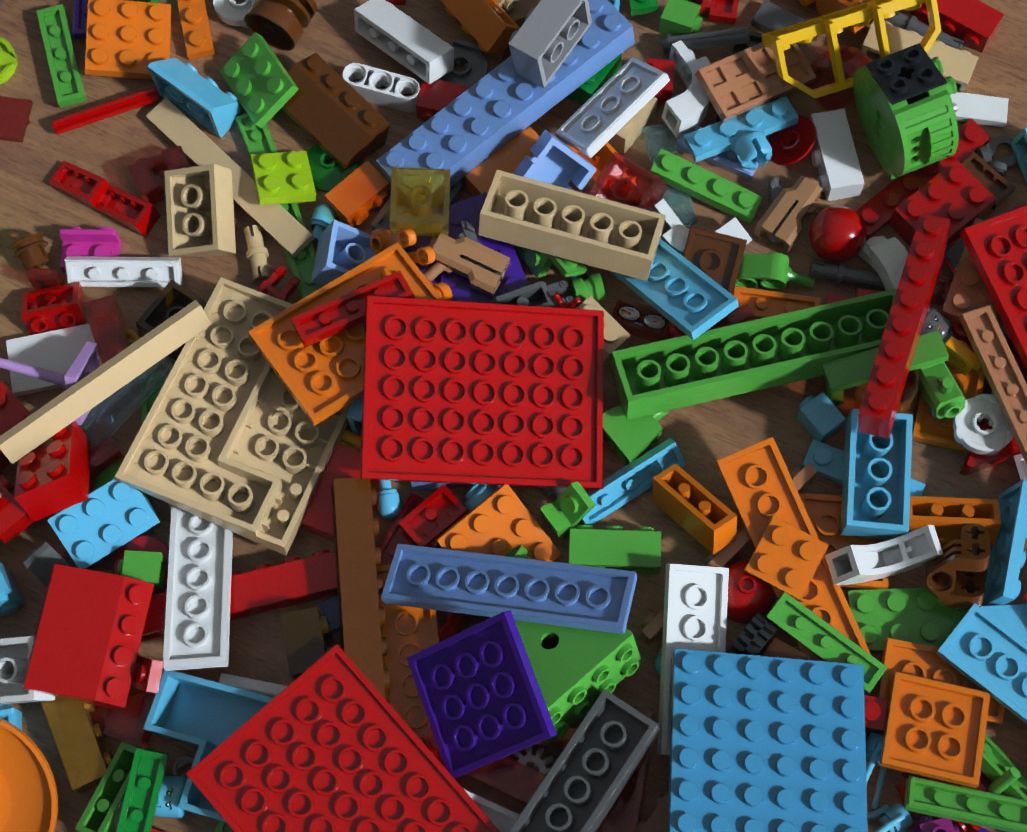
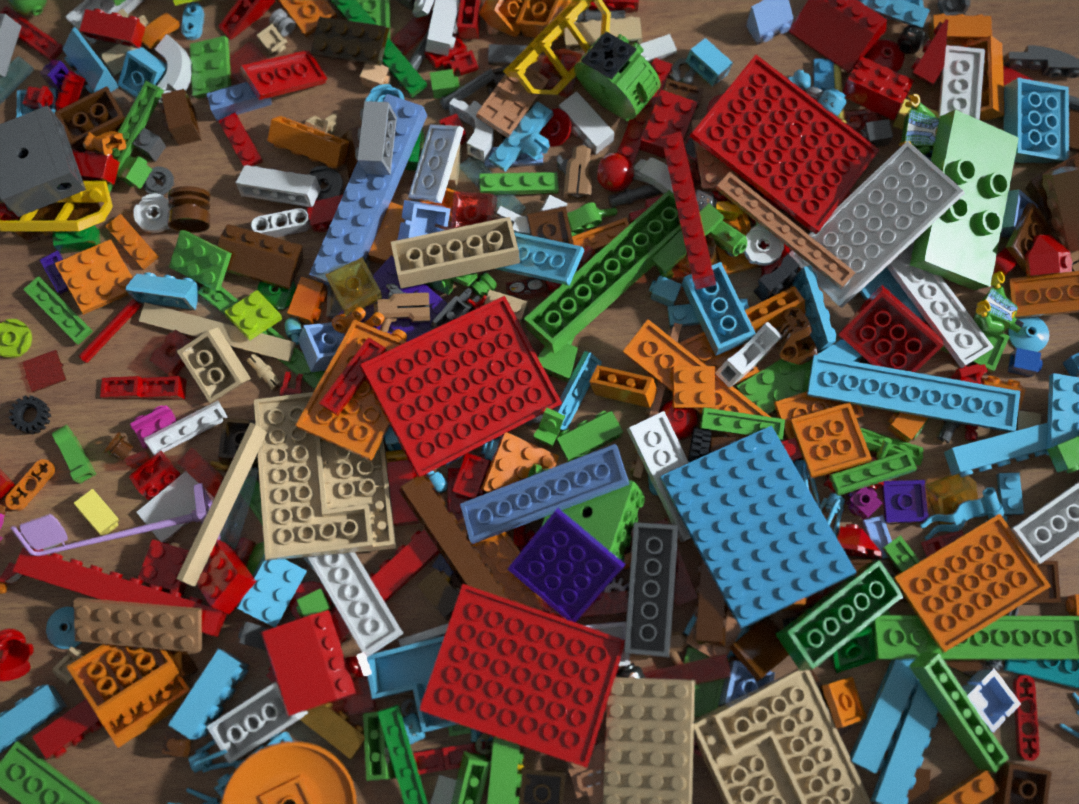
camera: 30 degrees left, 5 degrees up
(980, 479) = (782, 277): none -> black brick

